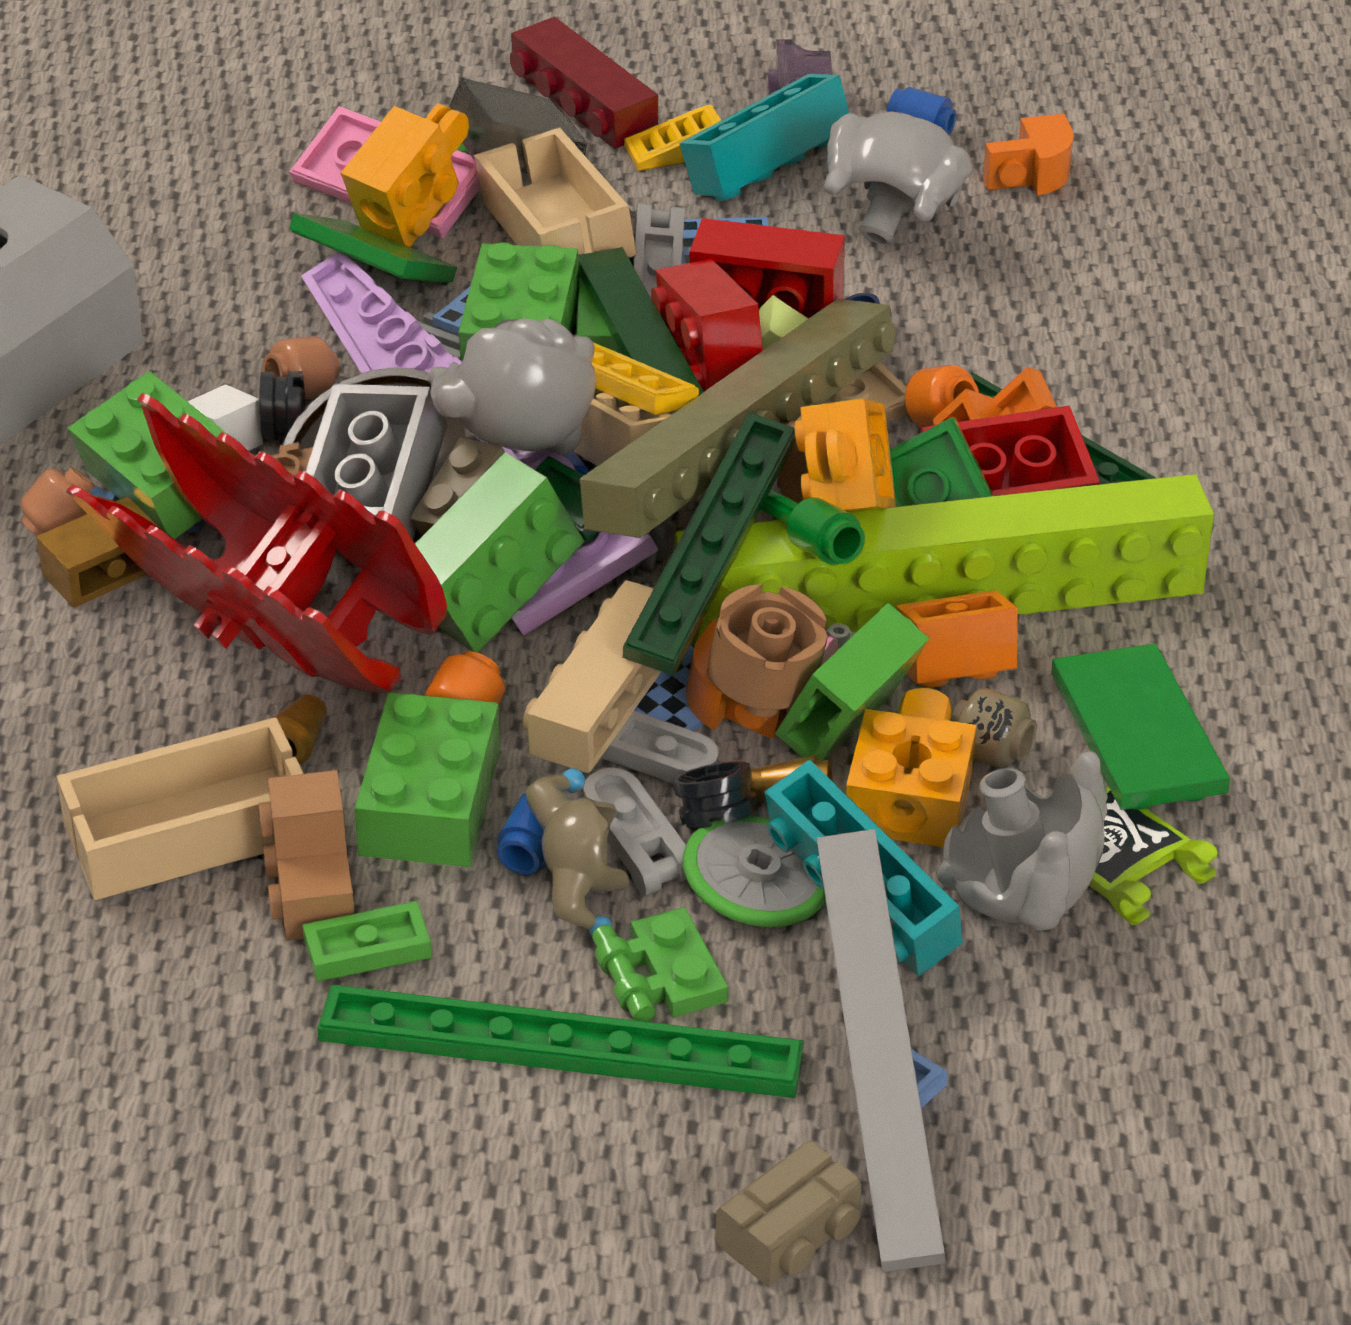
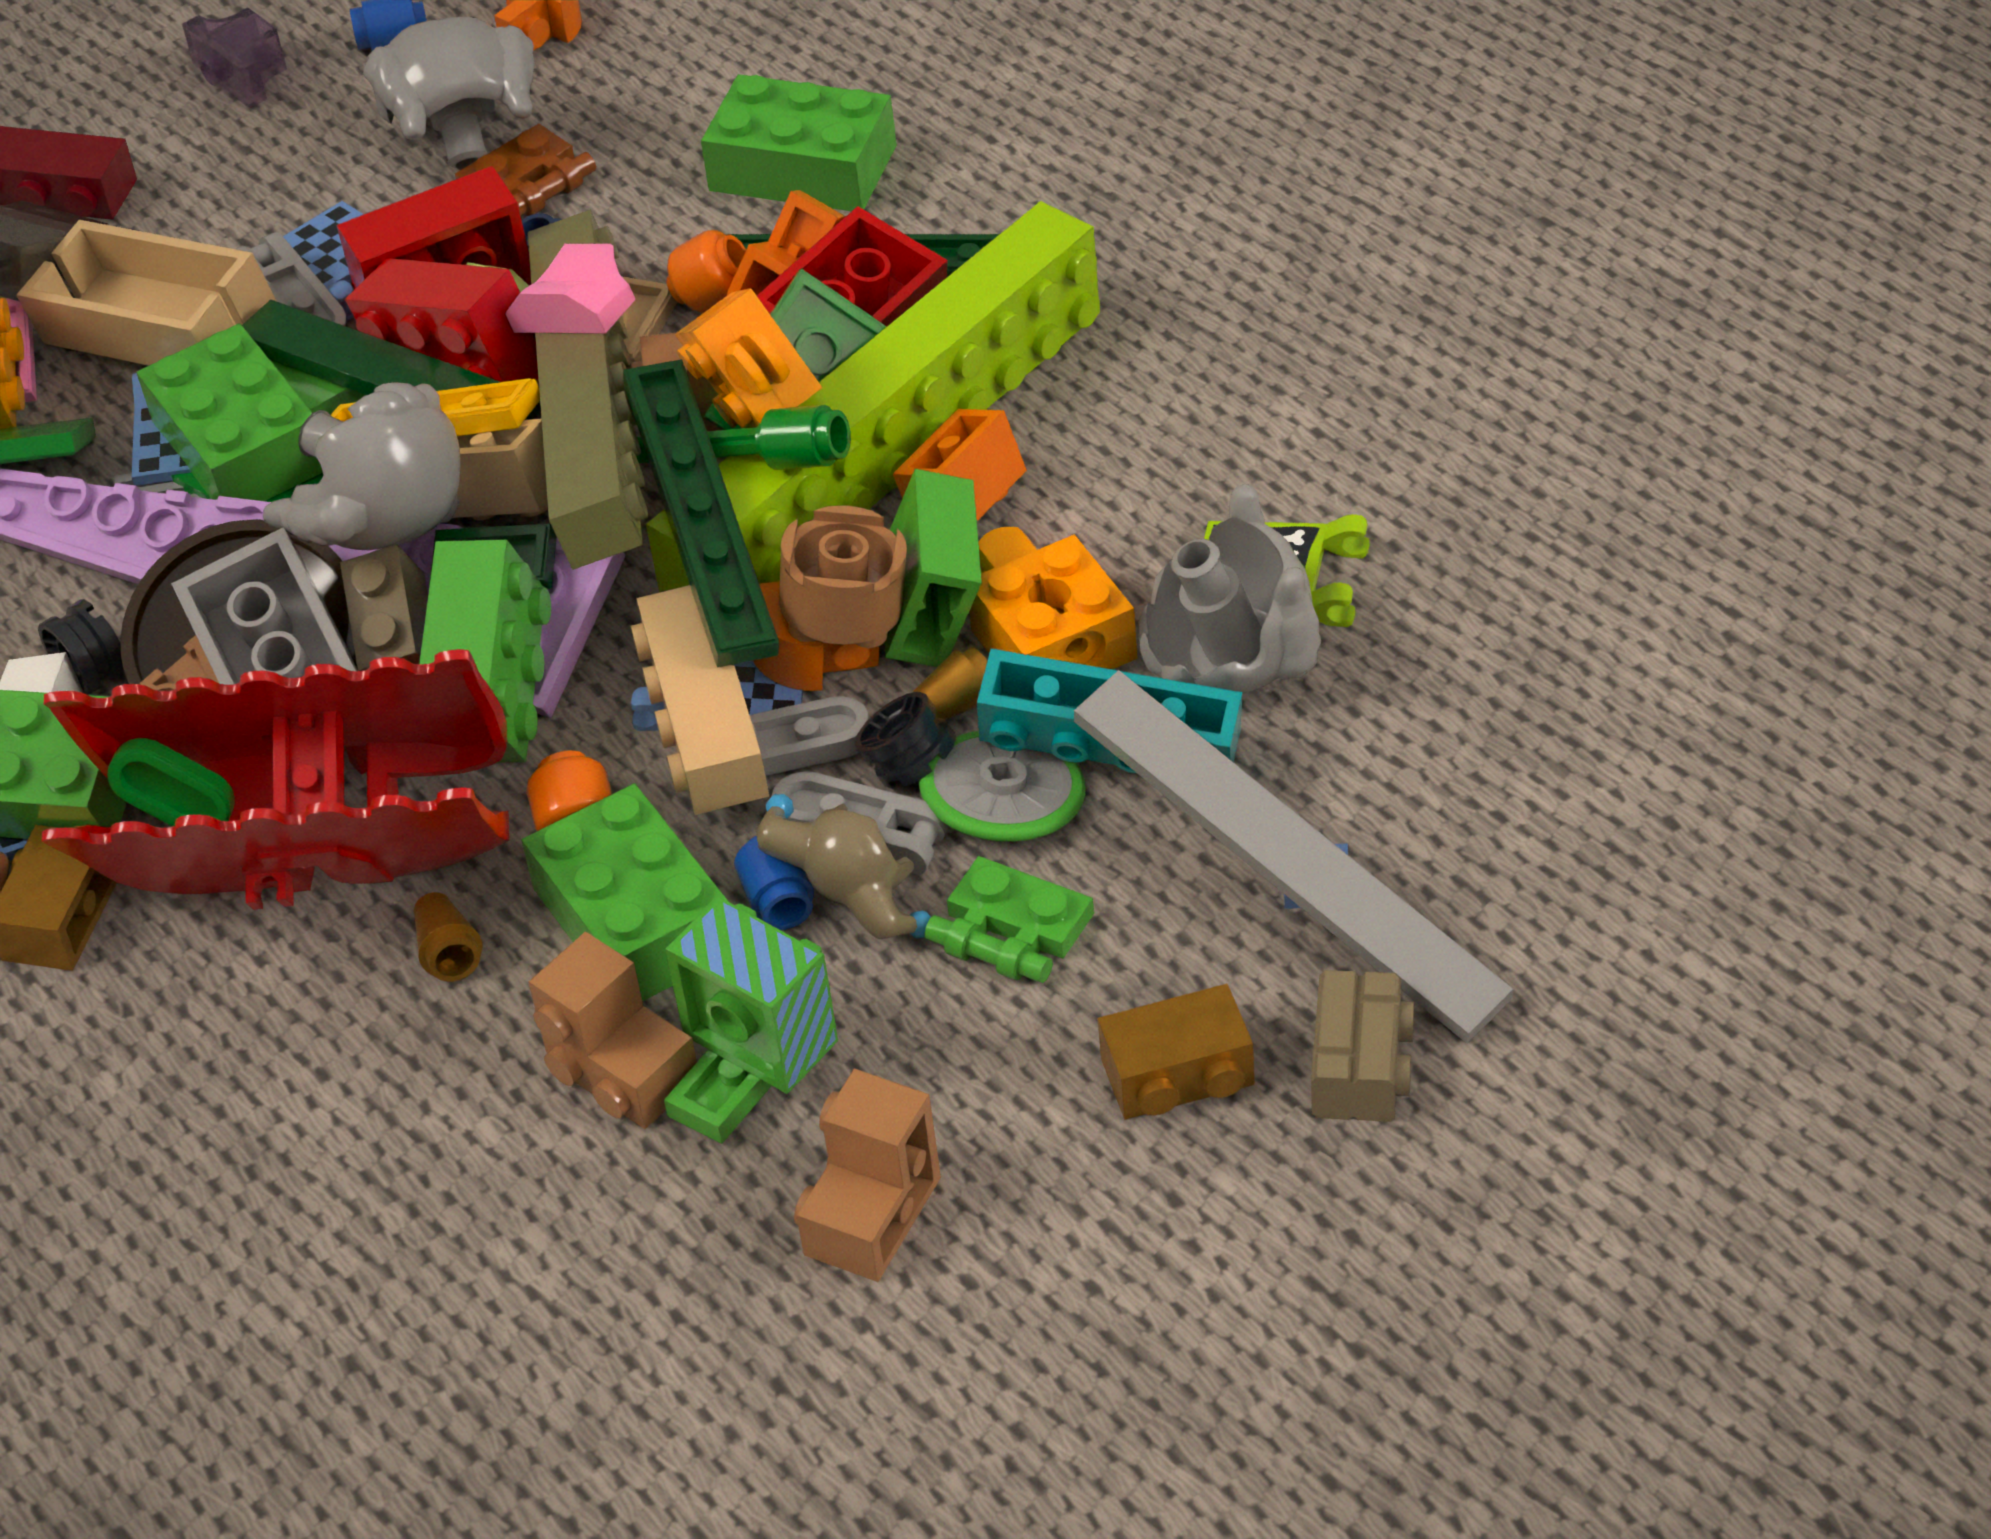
camera: 35 degrees left, 5 degrees up
(173, 807) = (429, 1075): tan piece -> none
(200, 513) = (167, 782): none -> green tile
(308, 355) = (48, 593): nougat head -> none
(369, 1069) = (875, 1174): none -> medium nougat brick
(404, 885) = (753, 993): none -> bright green container
(562, 1041) = (1015, 1031): green tile -> none
(661, 1128) = (1176, 1051): none -> pearl gold brick
(667, 137) = (188, 147): yellow slope -> none
(764, 136) = (272, 121): teal brick -> none
(787, 350) = (574, 294): none -> bright pink slope
(905, 265) = (535, 167): none -> dark orange plate
(1002, 726) = (1079, 515): dark tan head -> none
(1107, 348) = (799, 137): none -> bright green brick
(1140, 727) = (1183, 450): green tile -> none

